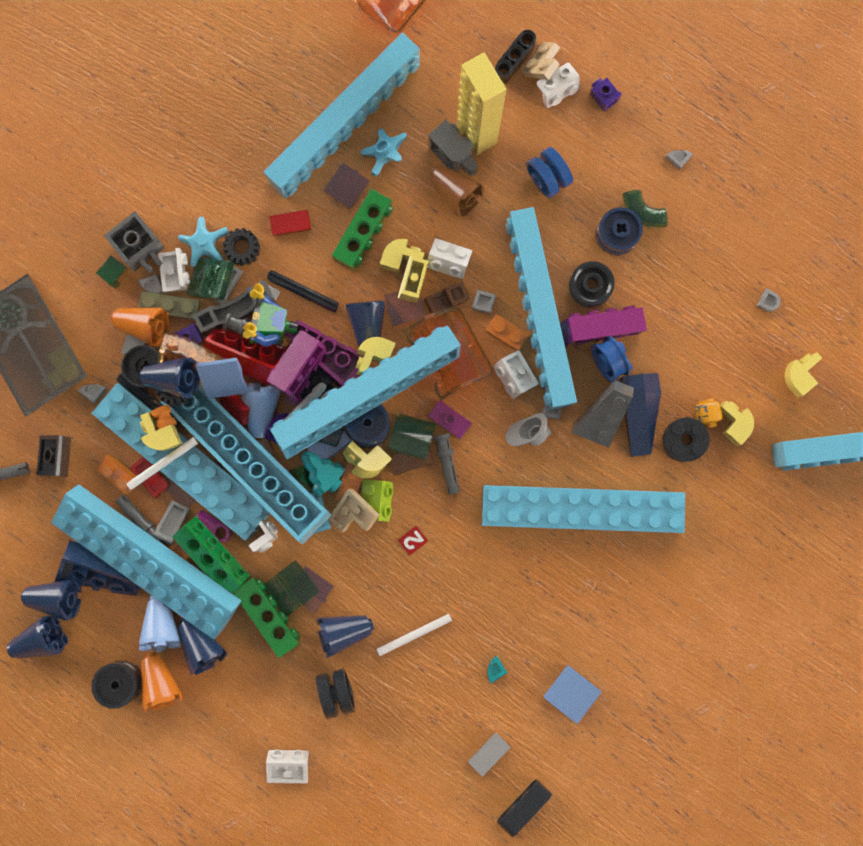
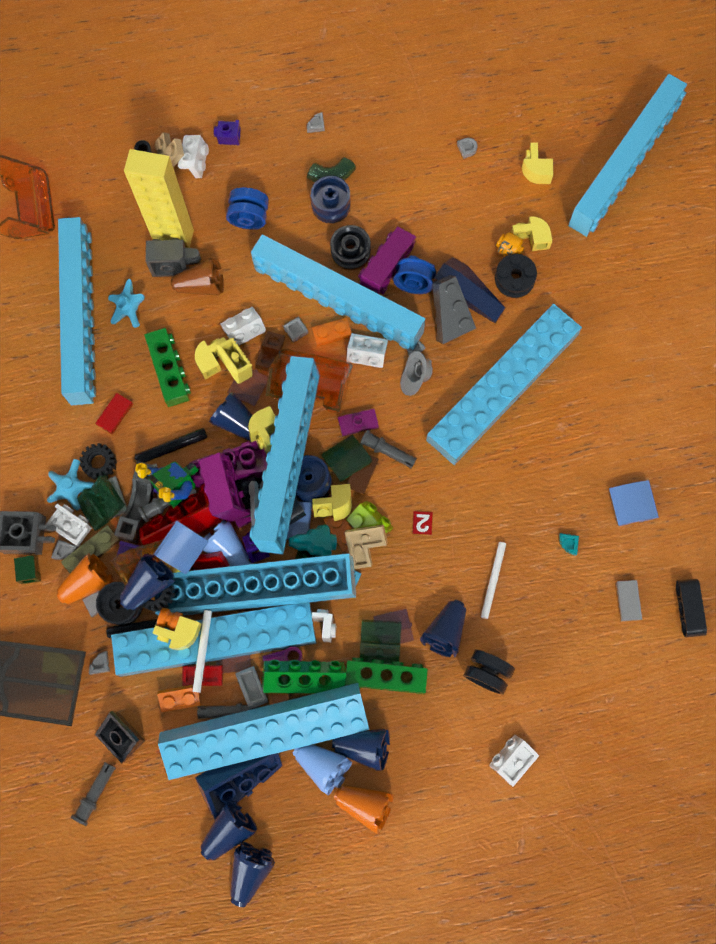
camera: 45 degrees left, 10 degrees down
(112, 695) = (341, 850): black wheel -> none
(346, 185) = (125, 353): piece -> none

